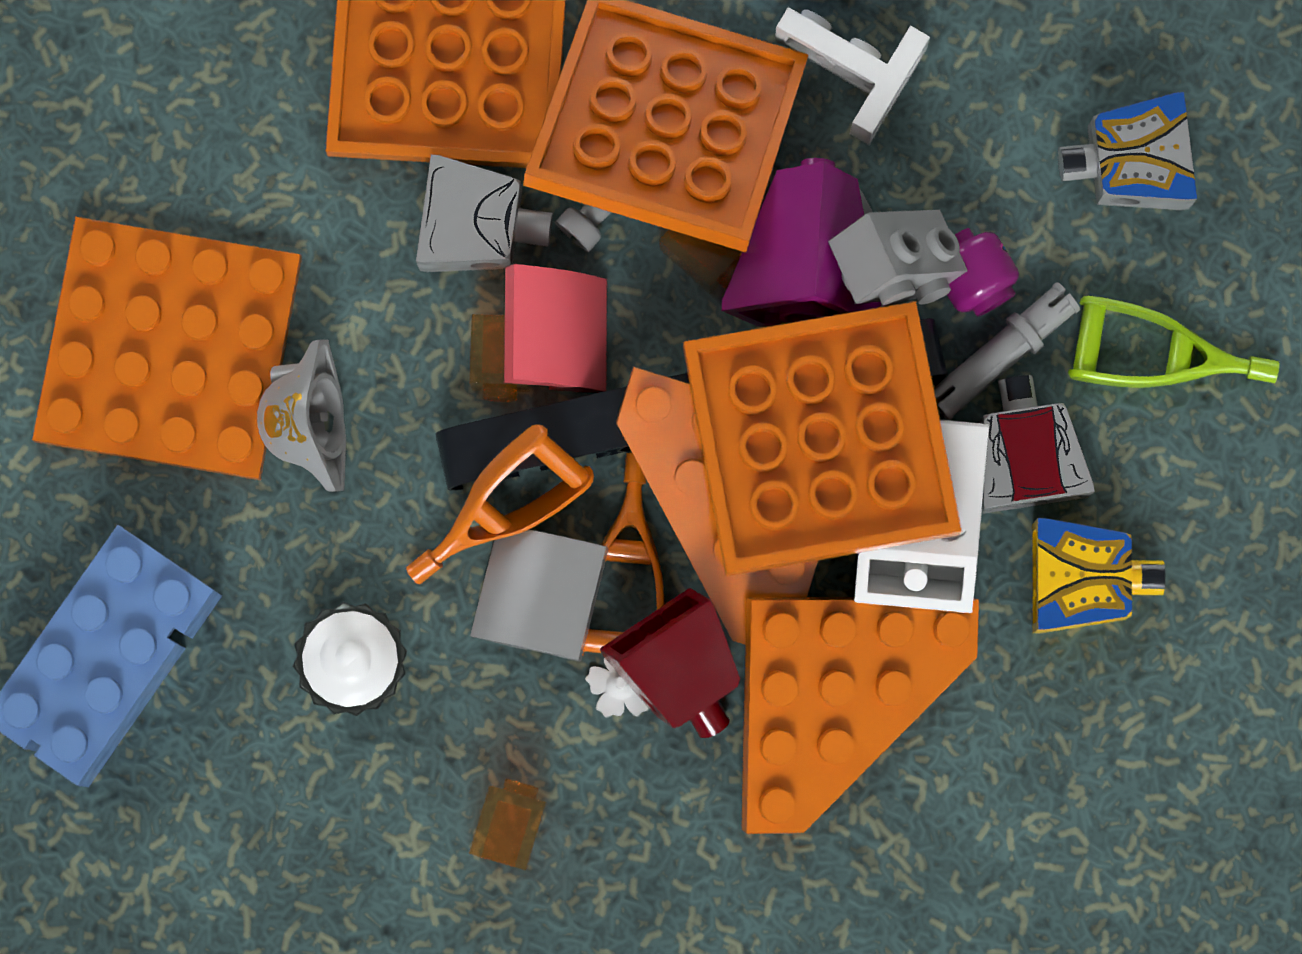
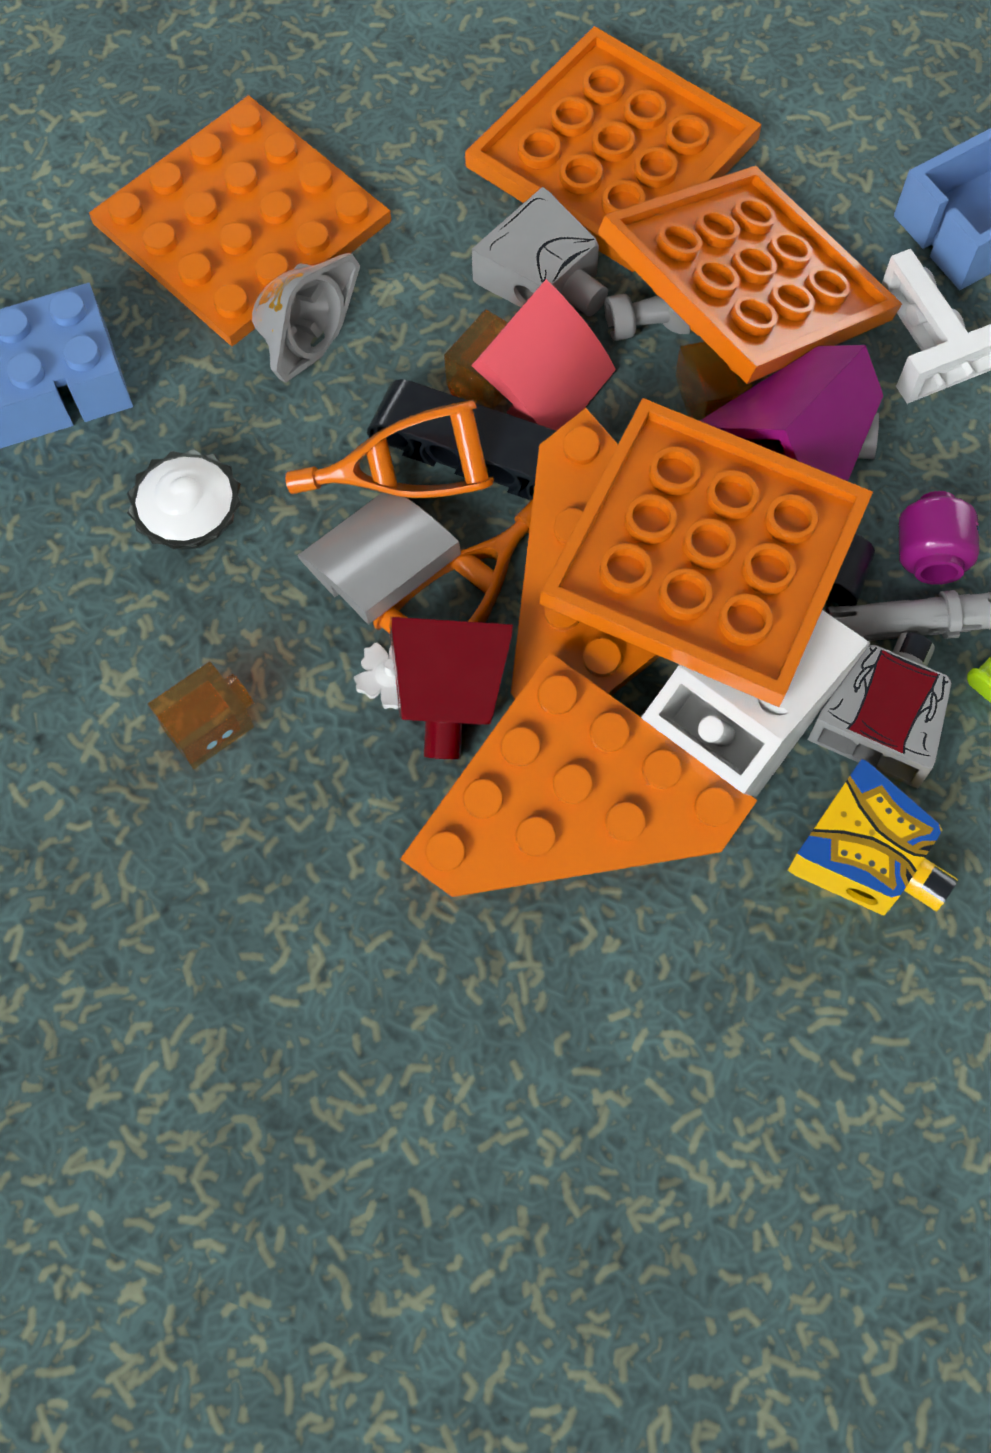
camera: 35 degrees right, 15 degrees down
(898, 257) = (879, 449): light grey brick -> none

